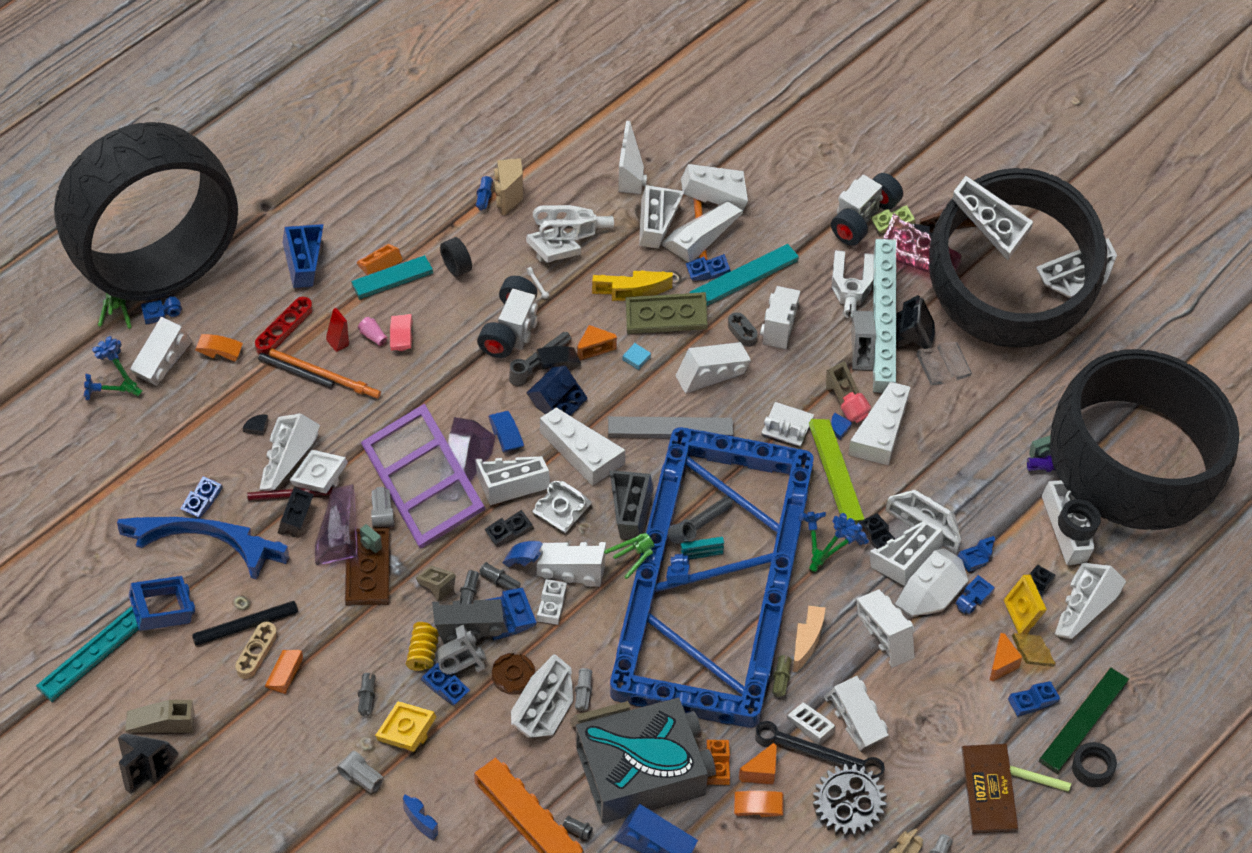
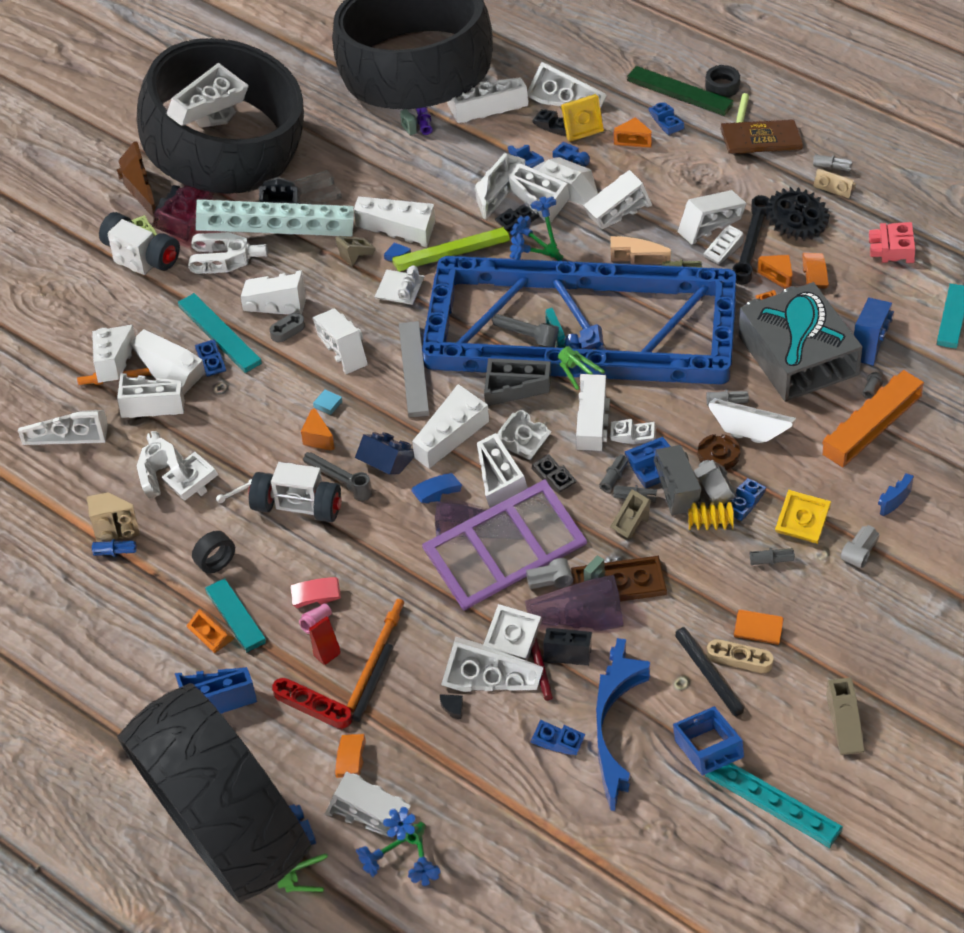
camera: 90 degrees left, 5 degrees down
(144, 760) = (904, 716): black piece -> none
(523, 553) = (589, 450): blue slope -> none
(558, 356) = (341, 456): black slope -> none
(600, 713) = (760, 371): dark tan piece -> none
(641, 284) = (238, 410): yellow slope -> none
(666, 313) = (272, 383): olive tile -> none
(855, 407) = (380, 236): coral head -> none
(863, 340) = (296, 237): light grey slope -> none
(1033, 649) = (622, 116): clear yellow piece -> none
(1084, 508) = (496, 73): black tyre -> none

